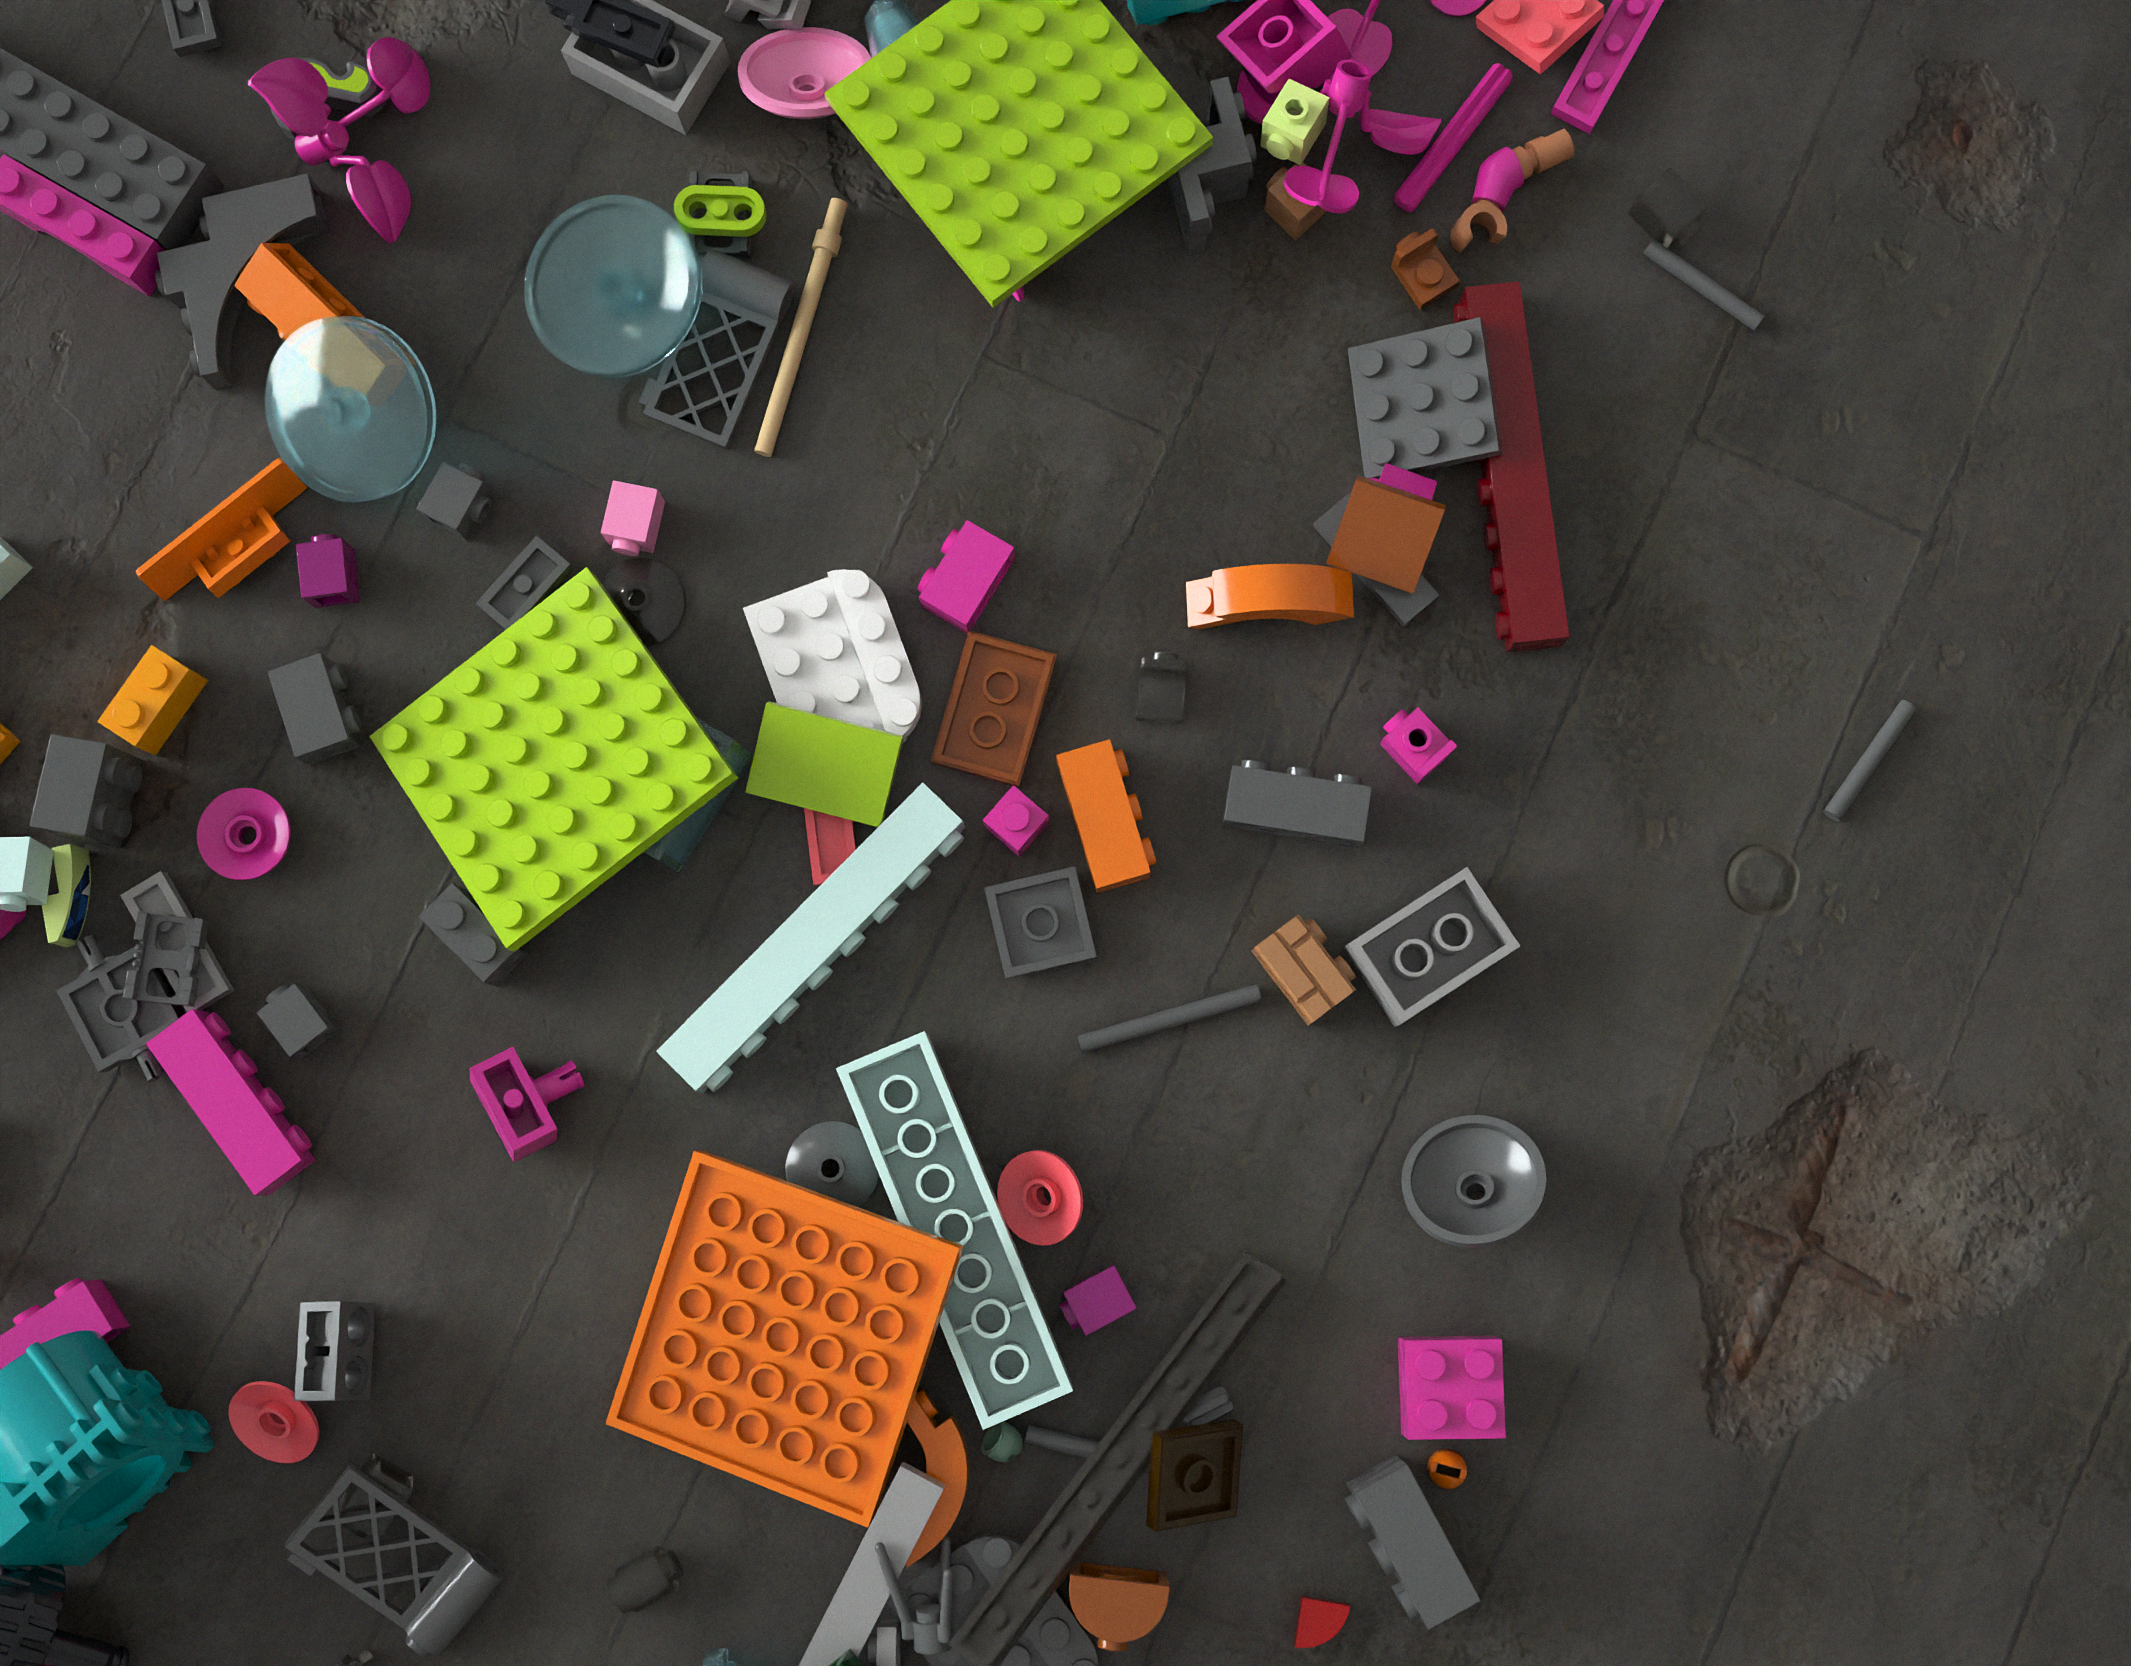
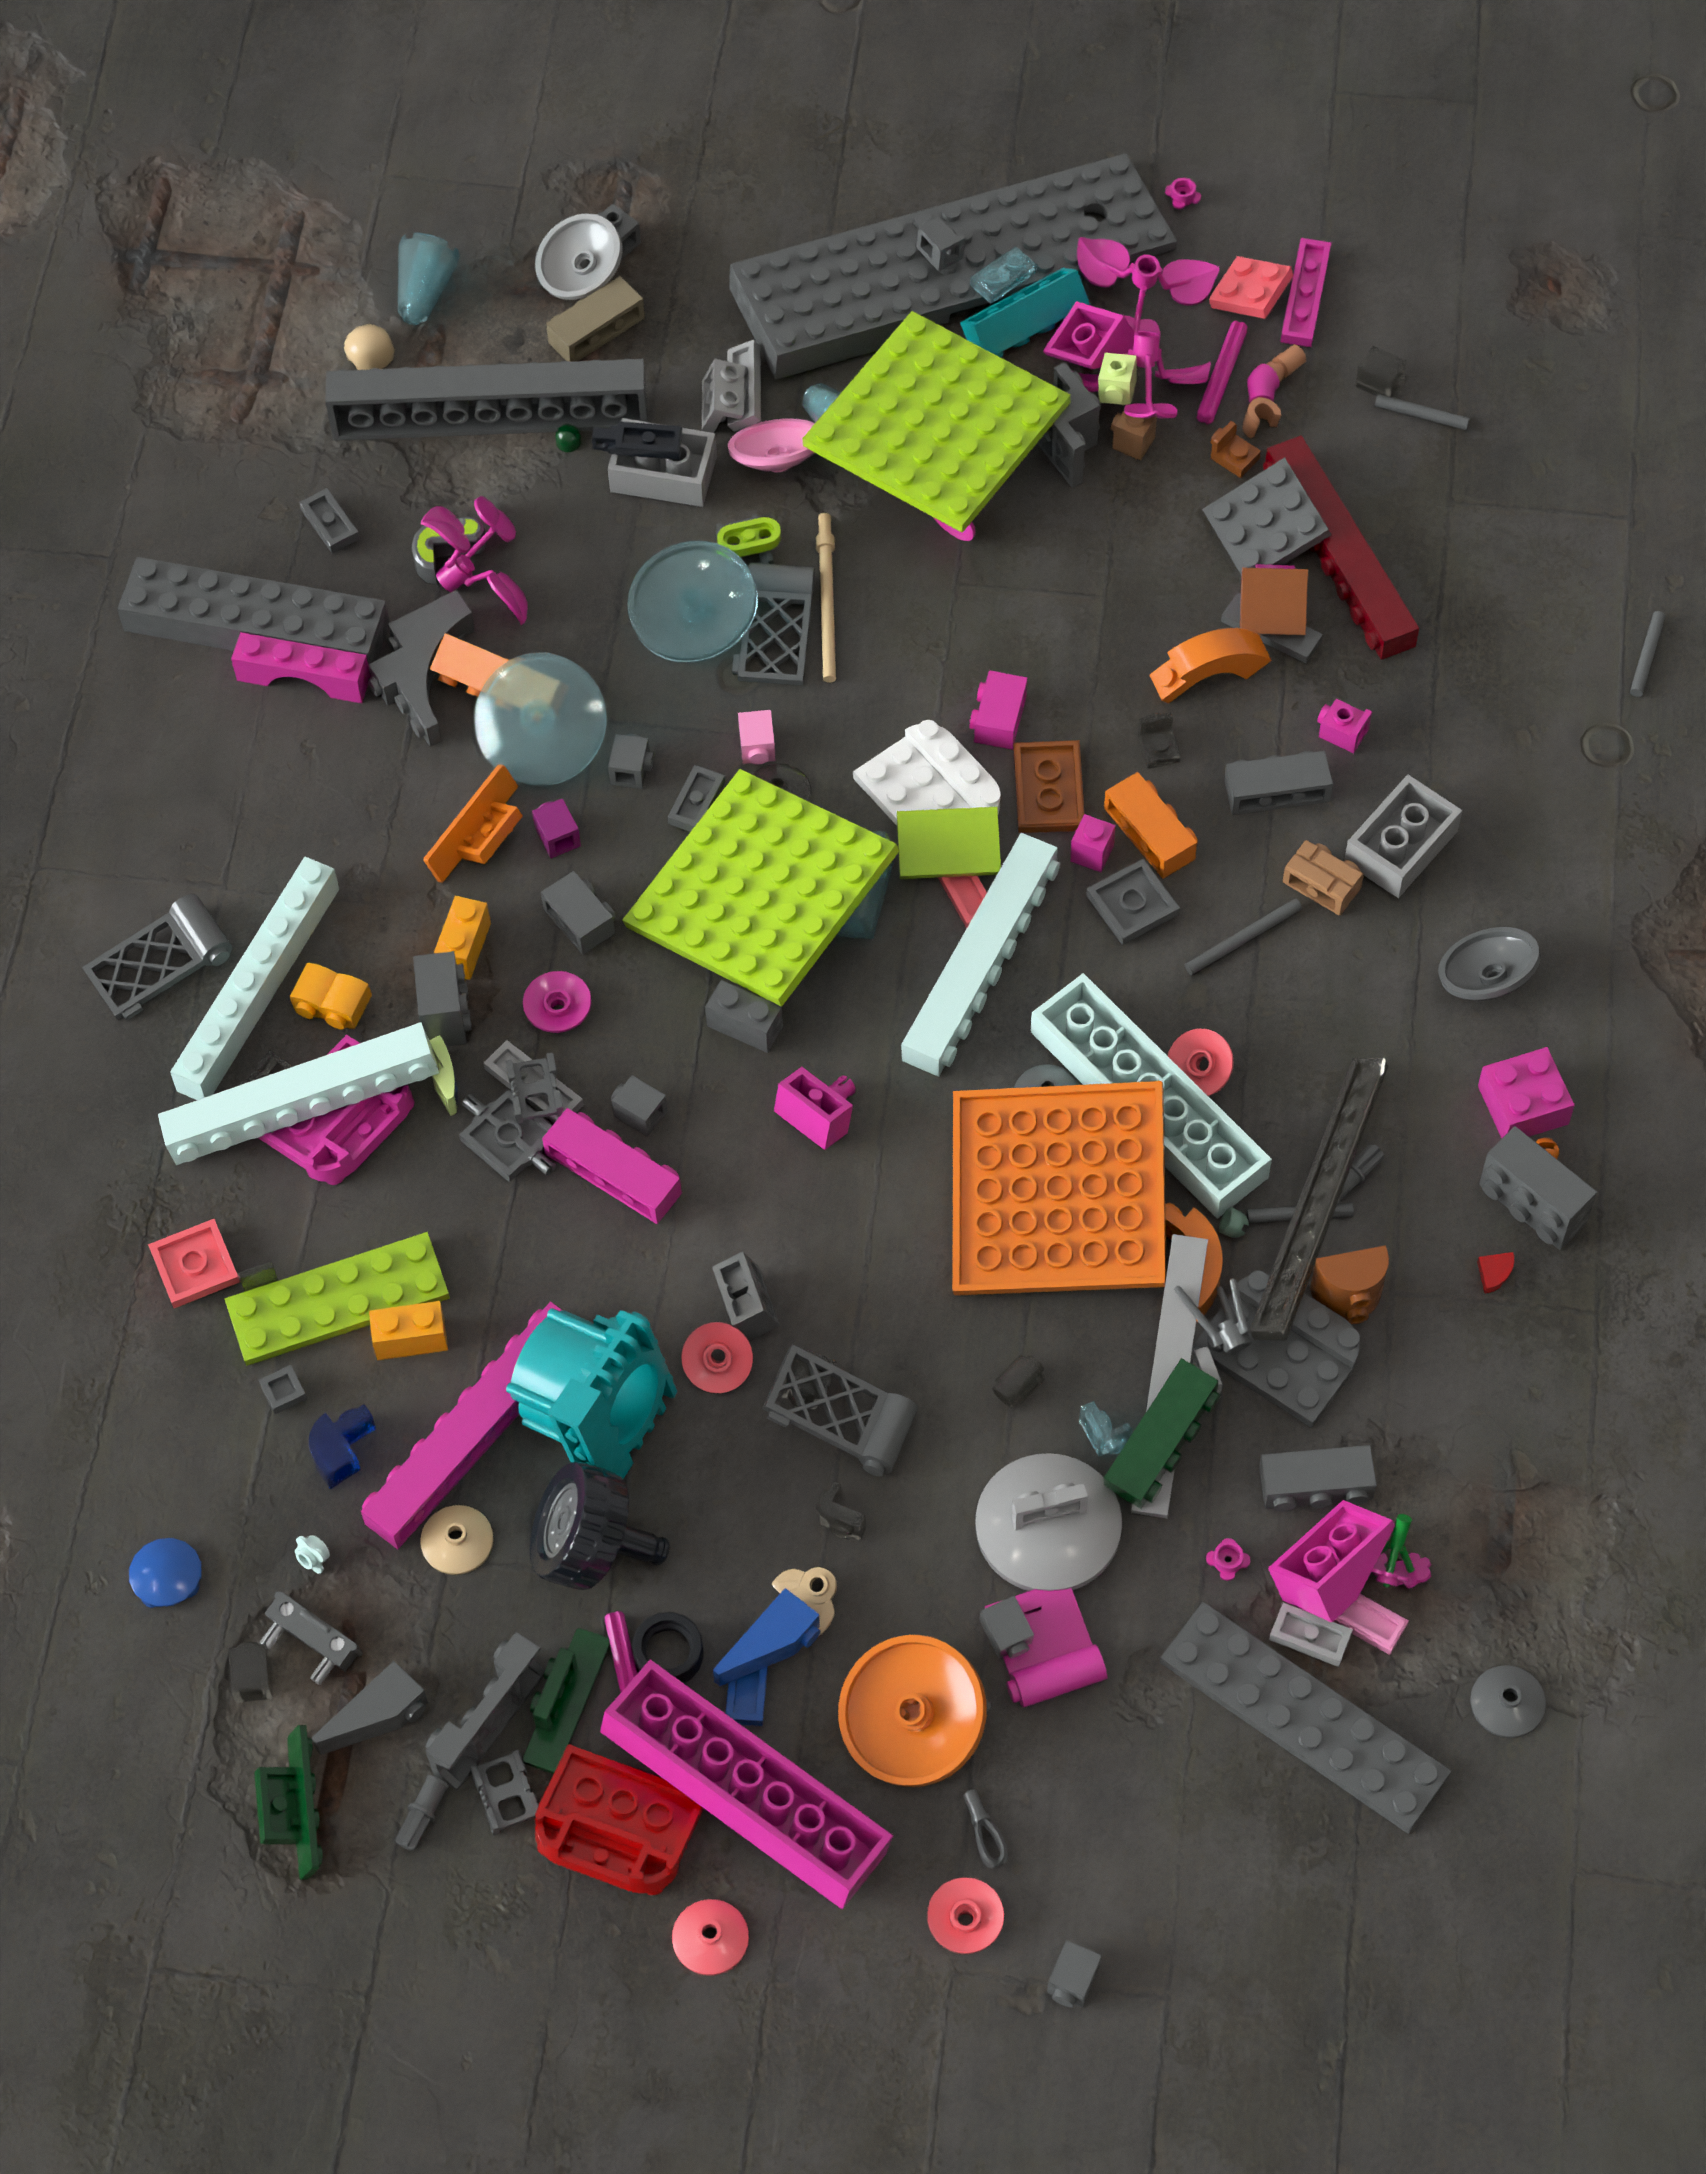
camera: 20 degrees left, 20 degrees down
(1097, 1301) = (1265, 1114): magenta brick -> none
(1194, 1474) = (1374, 1193): dark brown tile -> none

